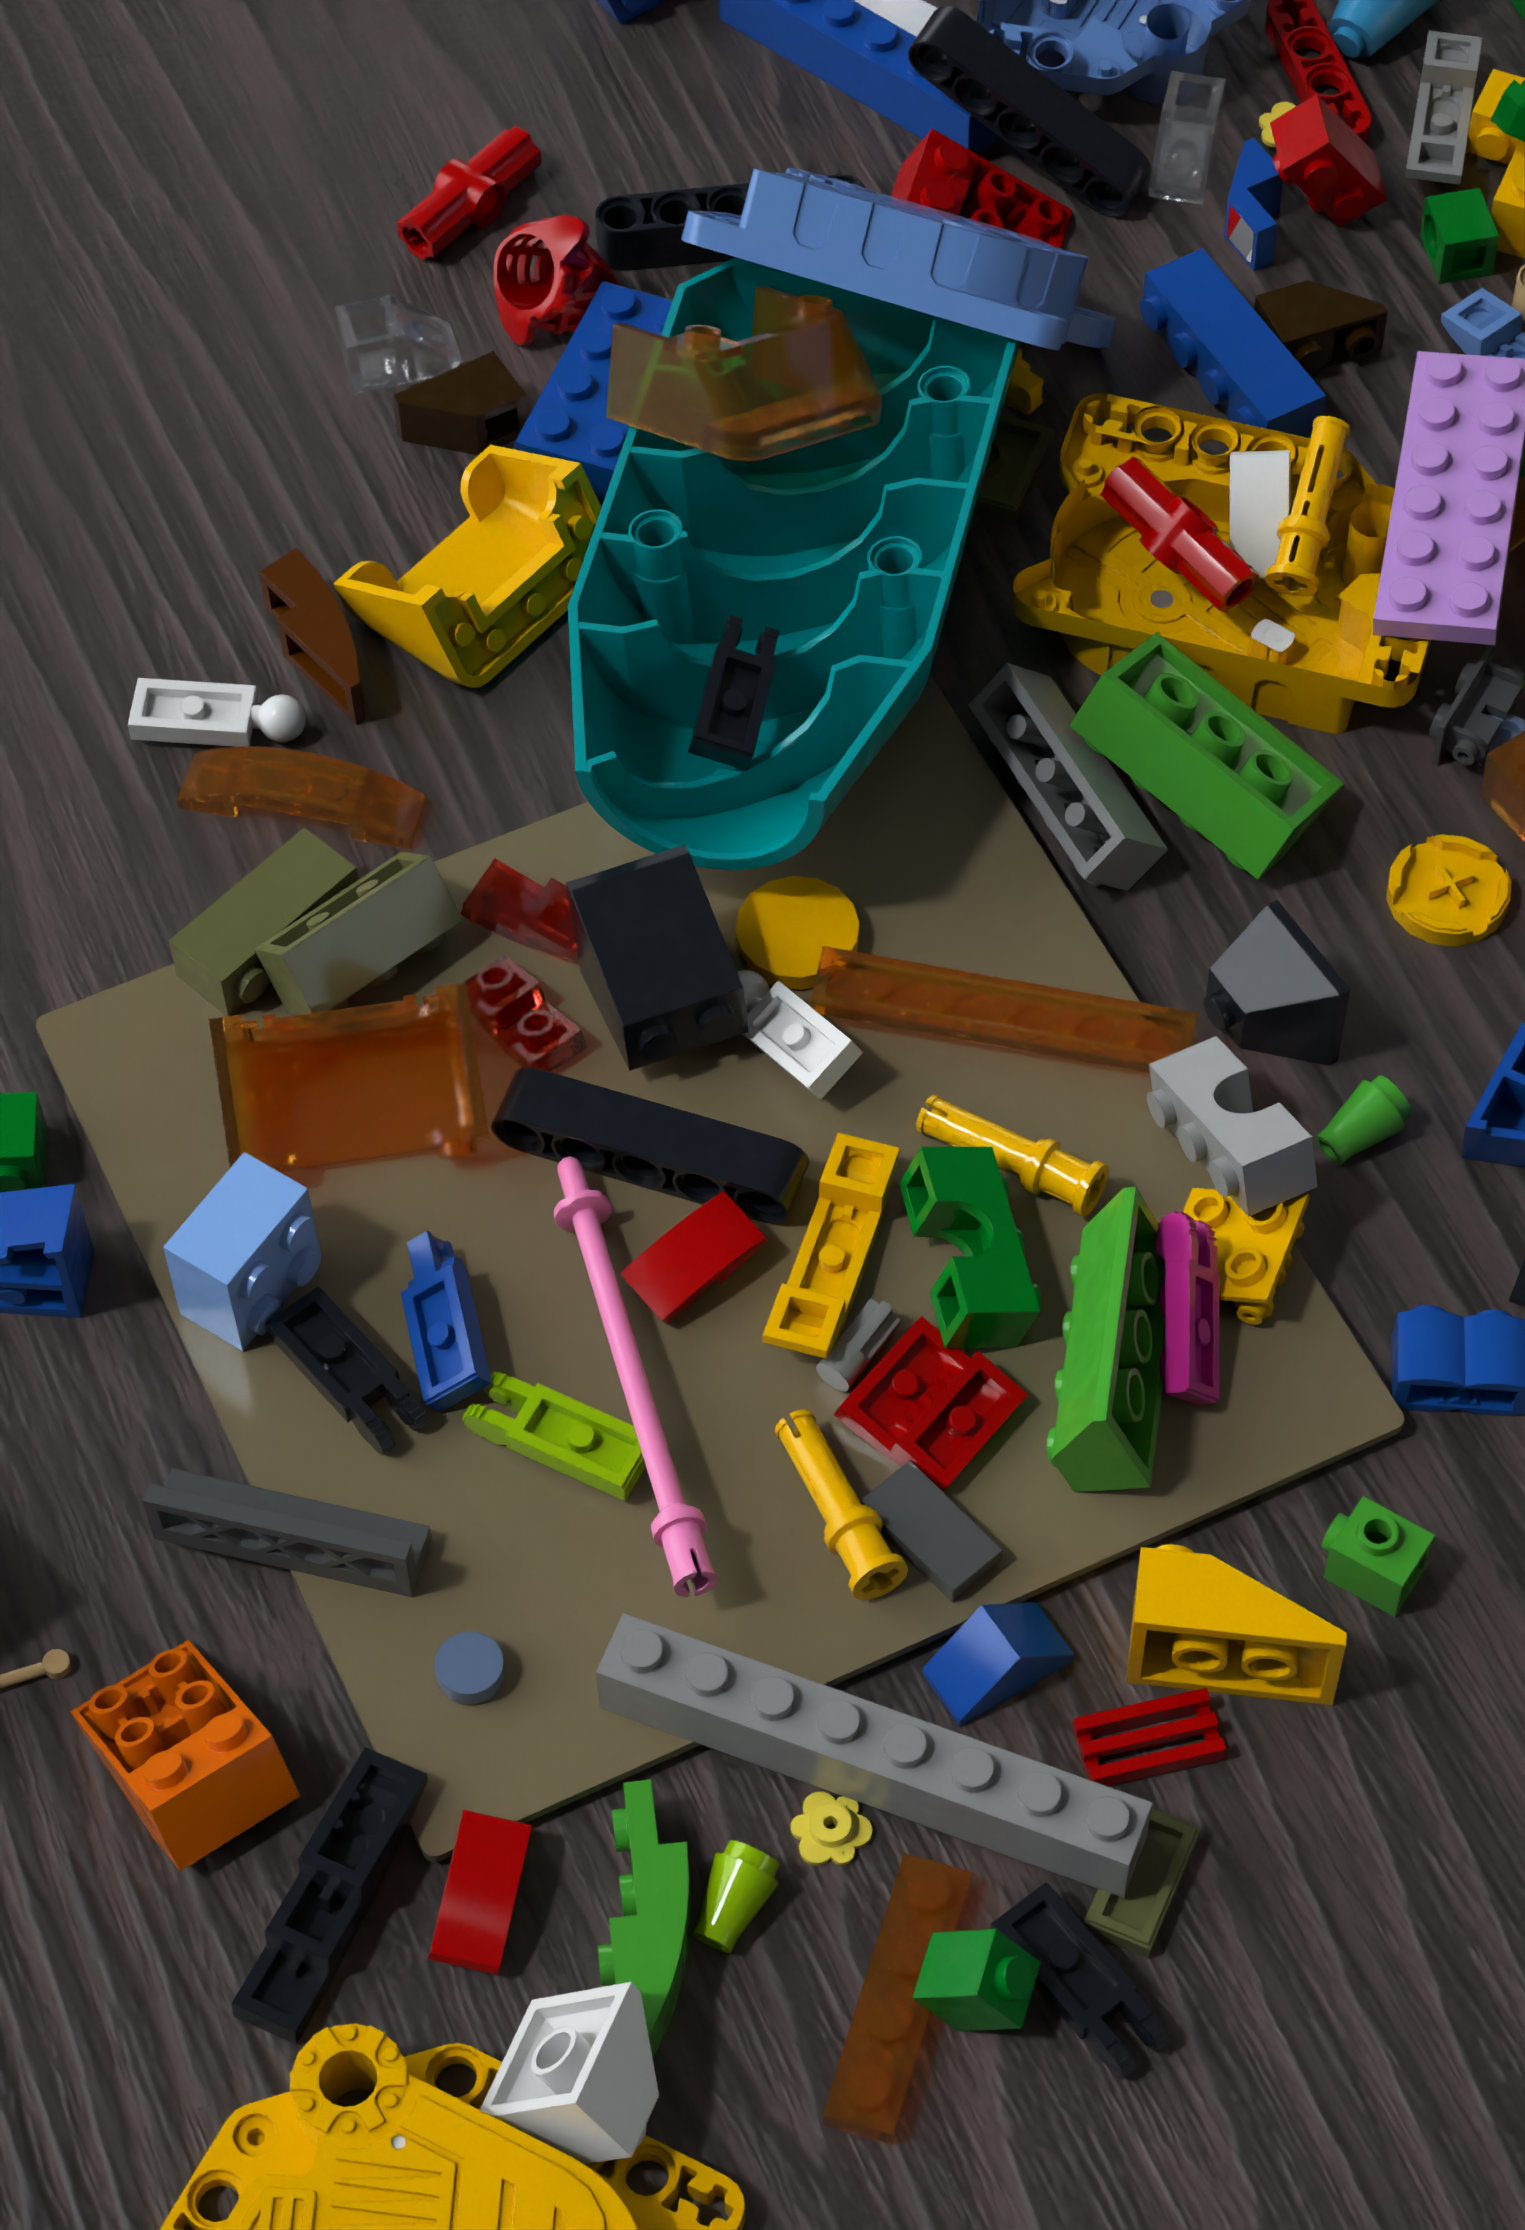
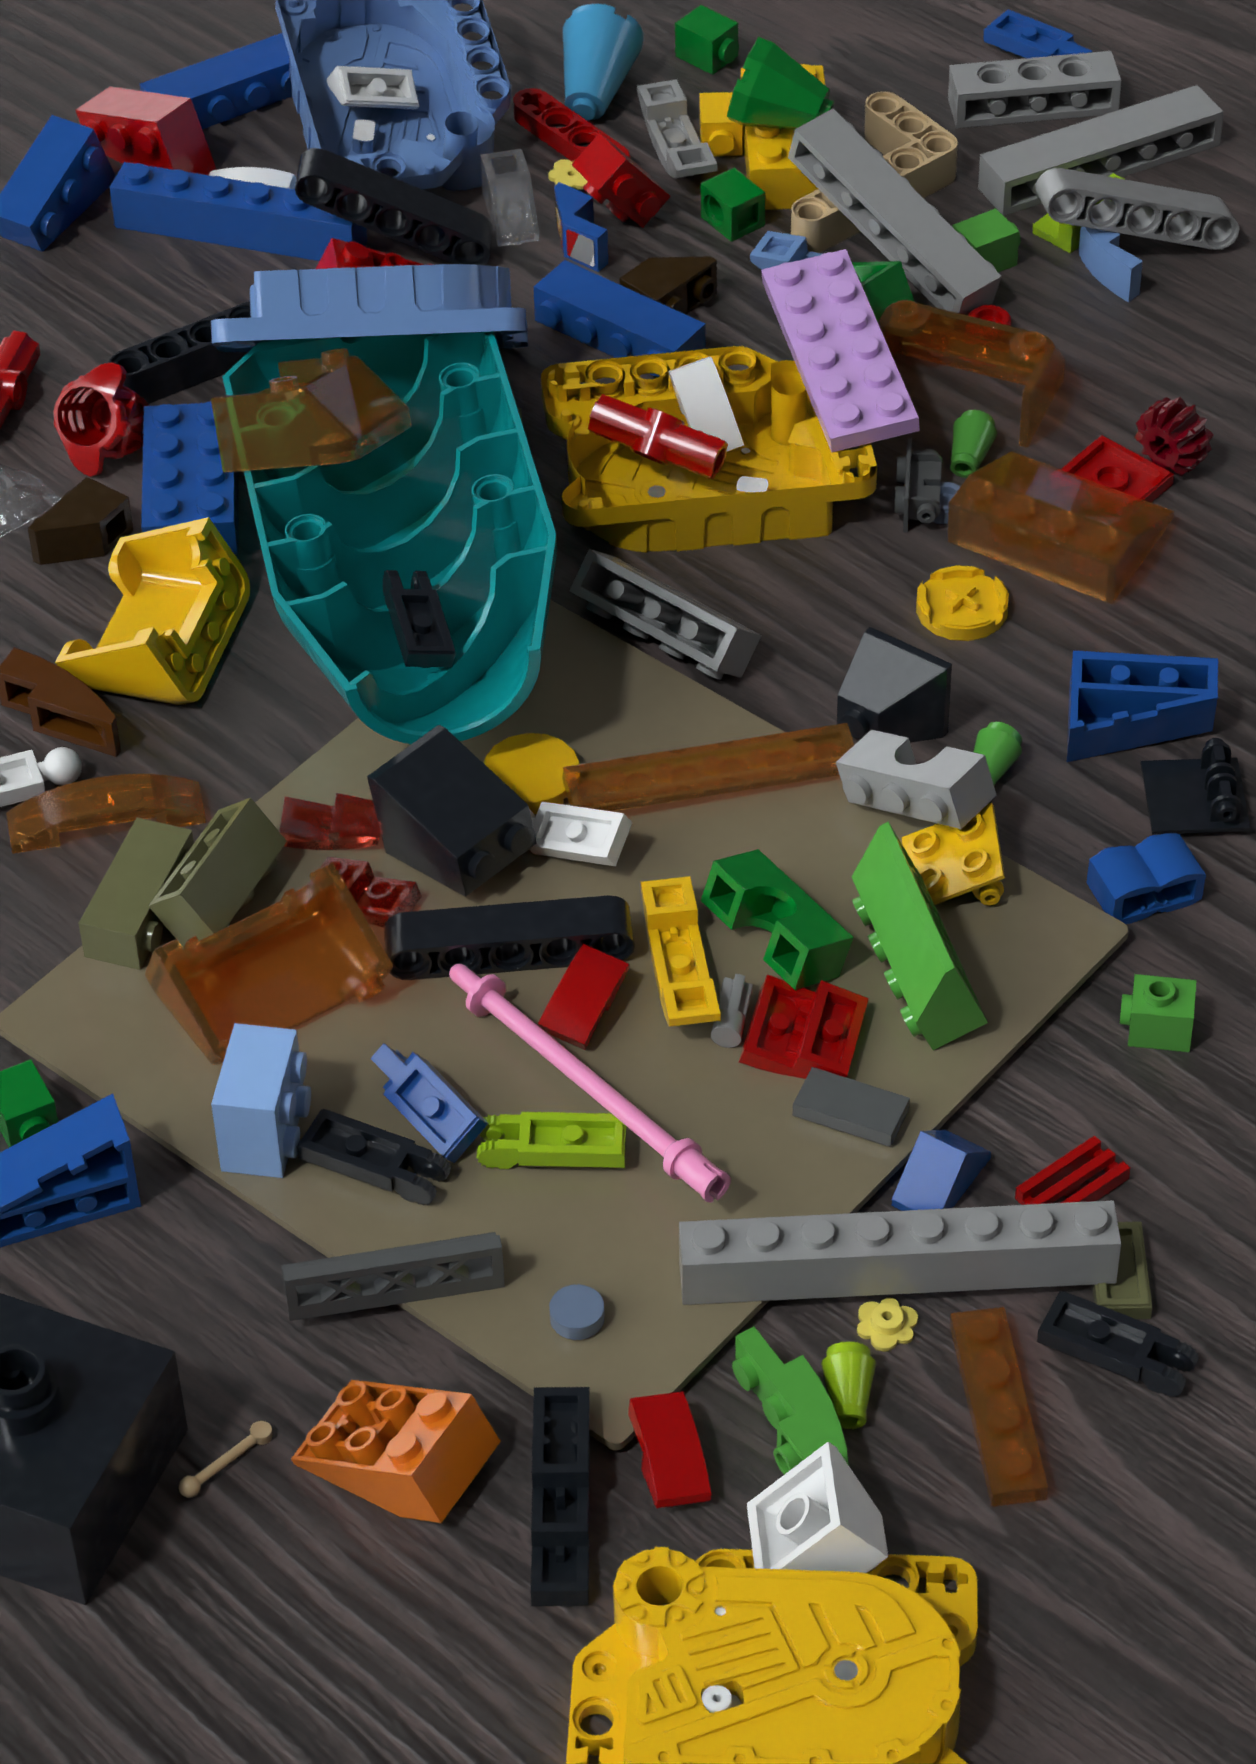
camera: 25 degrees left, 10 degrees down
(851, 1527) = (797, 1122): yellow pin -> none
(976, 1980) = (1052, 1364): green brick -> none
(1038, 1164) = (793, 854): yellow pin -> none
(1190, 1309) = (953, 898): dark pink hinge -> none
(1205, 754) = (755, 568): bright green slope -> none
(1225, 1632) = (1095, 1086): yellow slope -> none
(1304, 530) = (735, 345): yellow pin -> none

